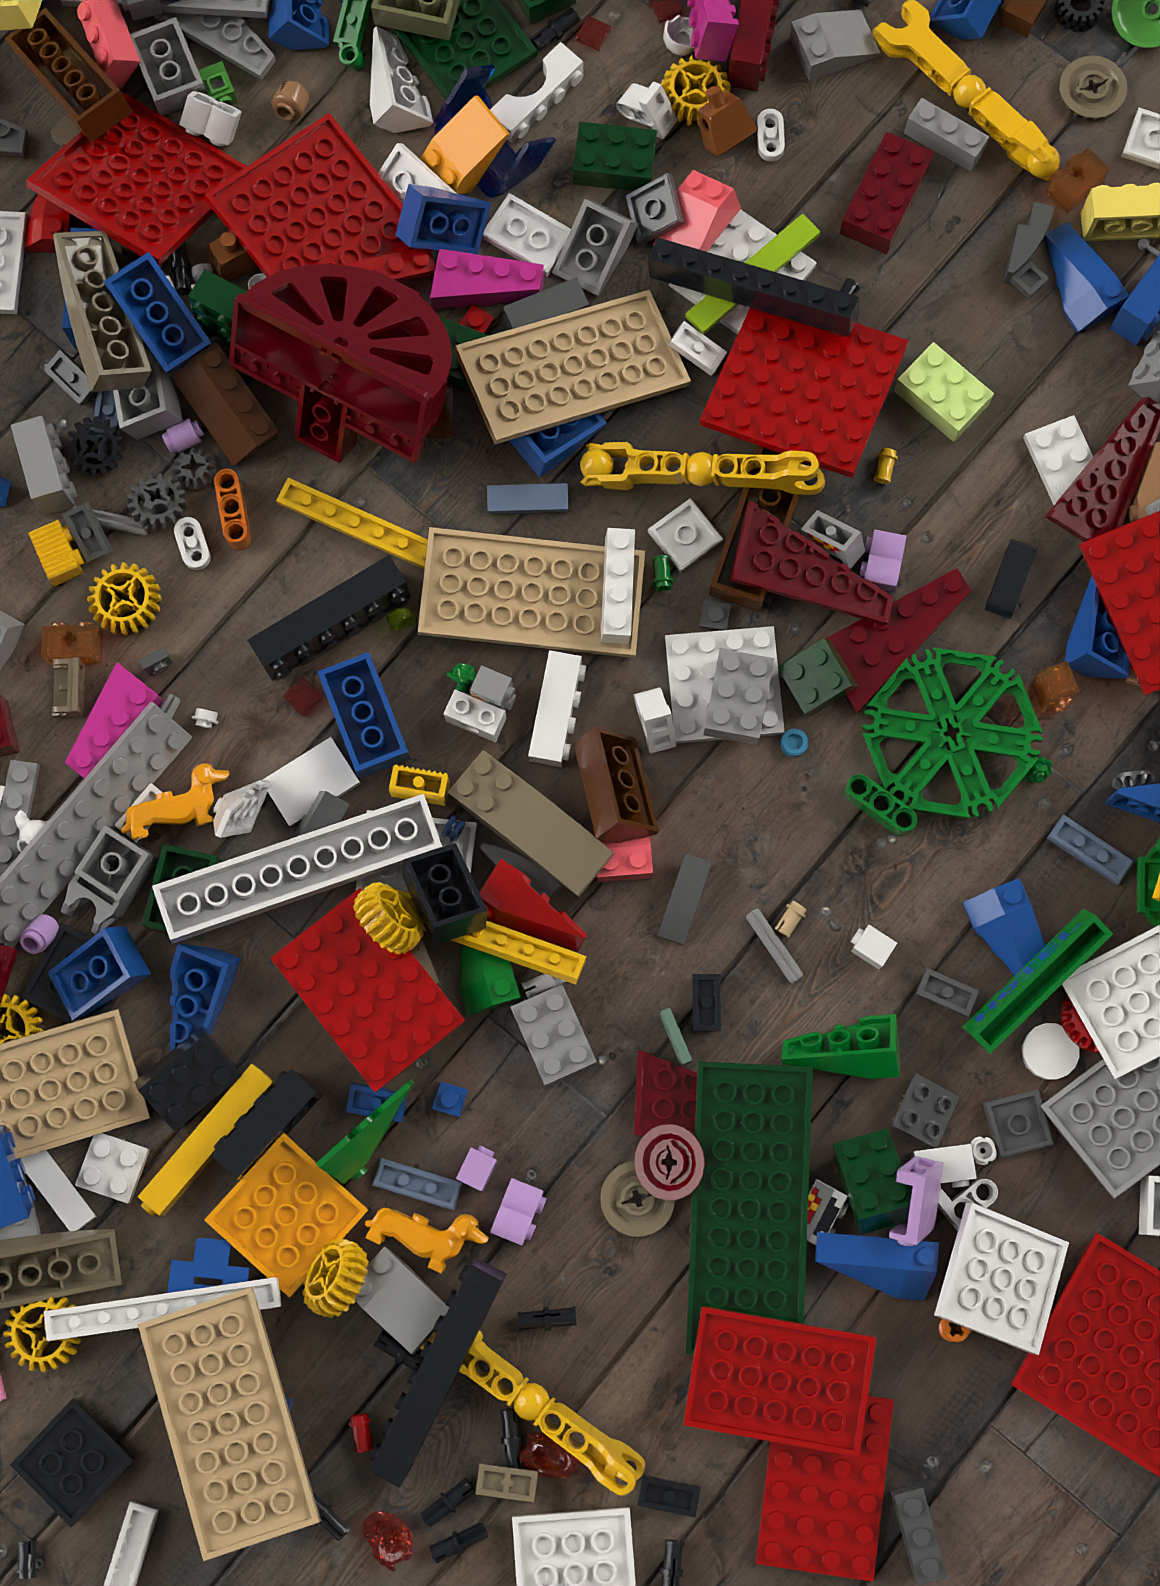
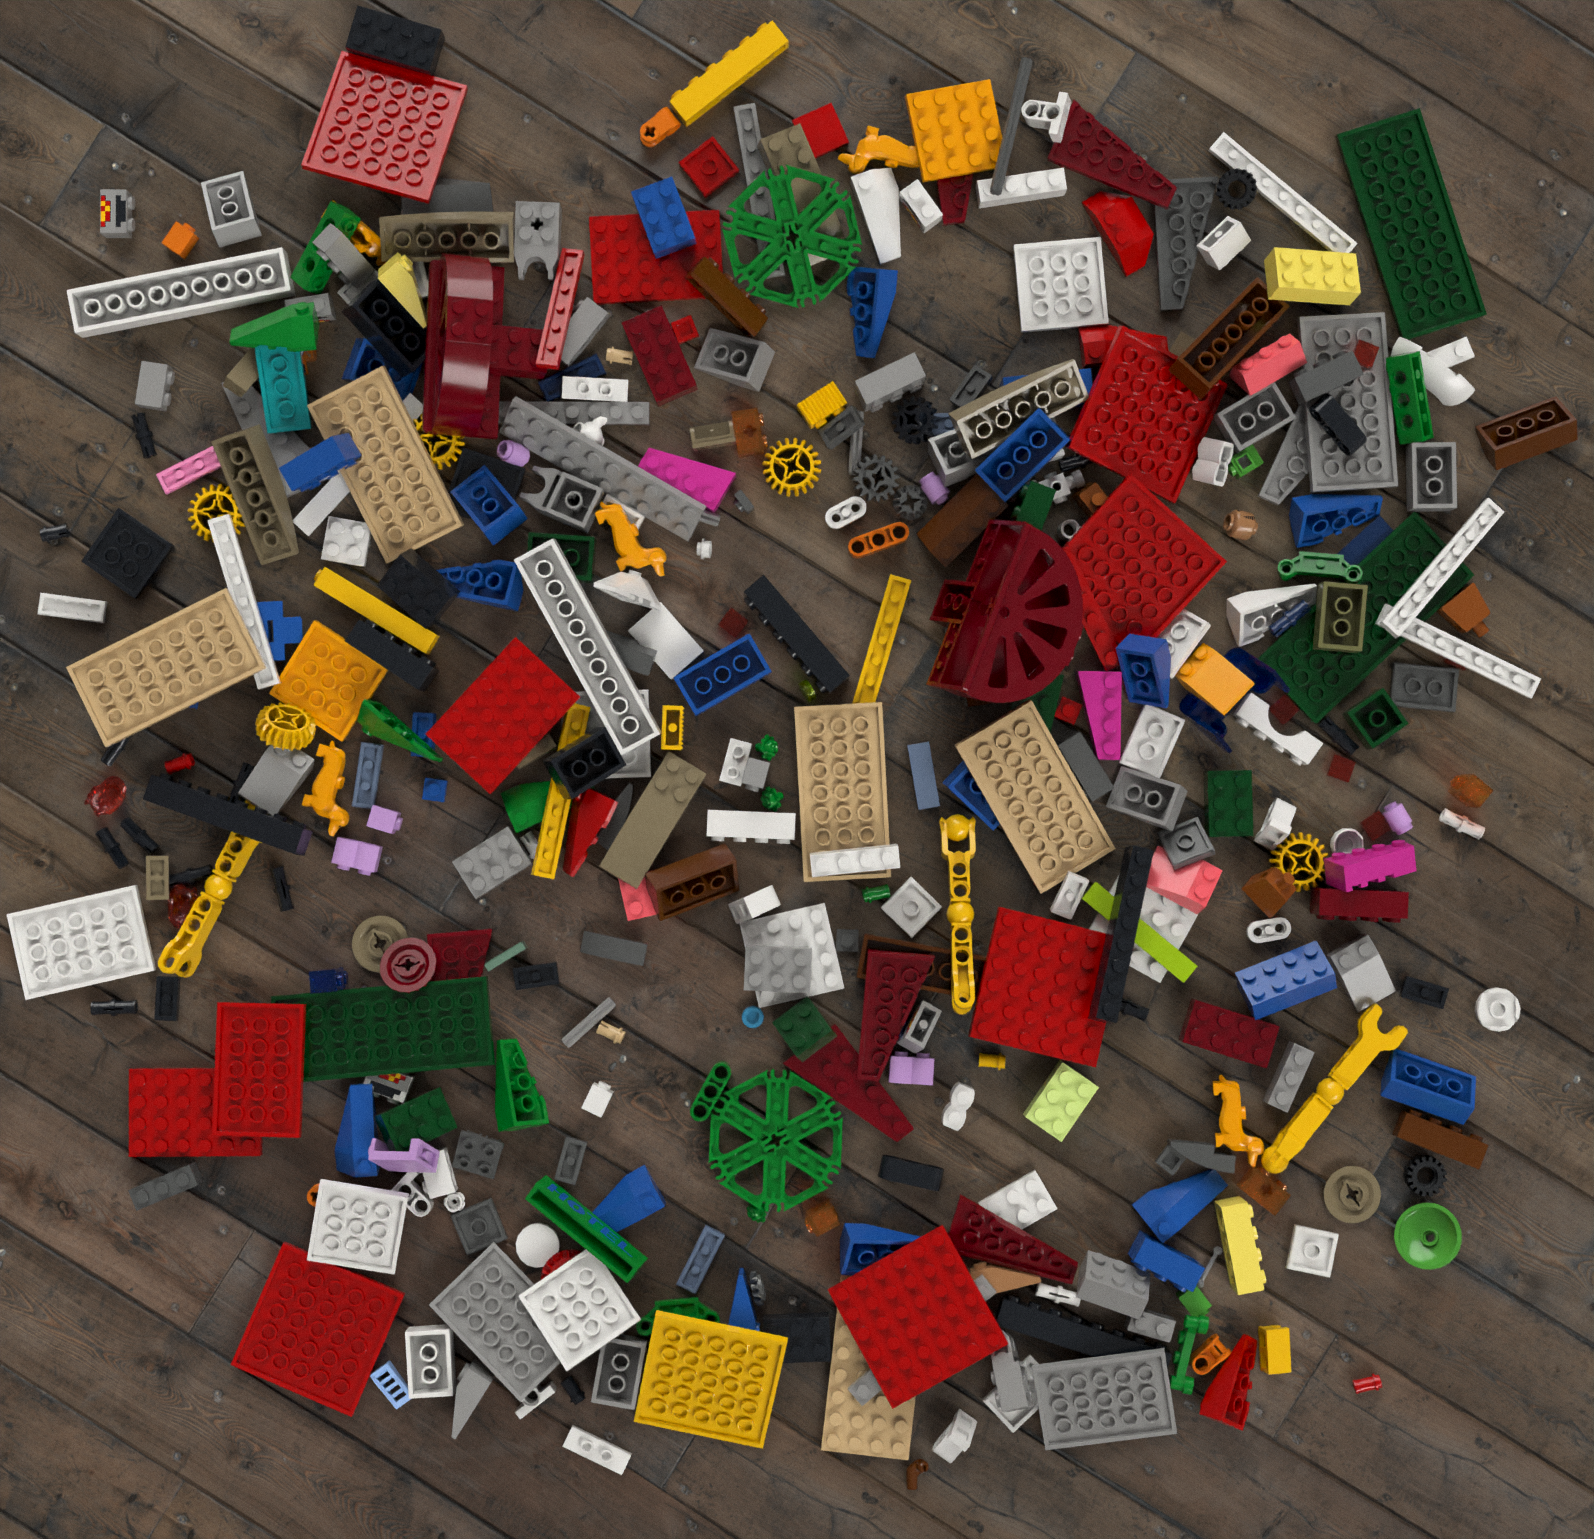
camera: 75 degrees right, 10 degrees up
(388, 918) = (556, 724): yellow gear -> none
(409, 60) = (1289, 618): none -> dark blue pin
(453, 829) = (640, 760): dark blue bush -> none
(515, 84) = (1283, 709): none -> clear red tile
(527, 680) = (771, 799): none -> green plant
(674, 1271) = (327, 980): none -> clear blue brick
(832, 118) = (1286, 980): none -> brick
(931, 509) = (955, 1111): none -> white brick
(992, 204) = (1231, 1122): none -> light orange animal

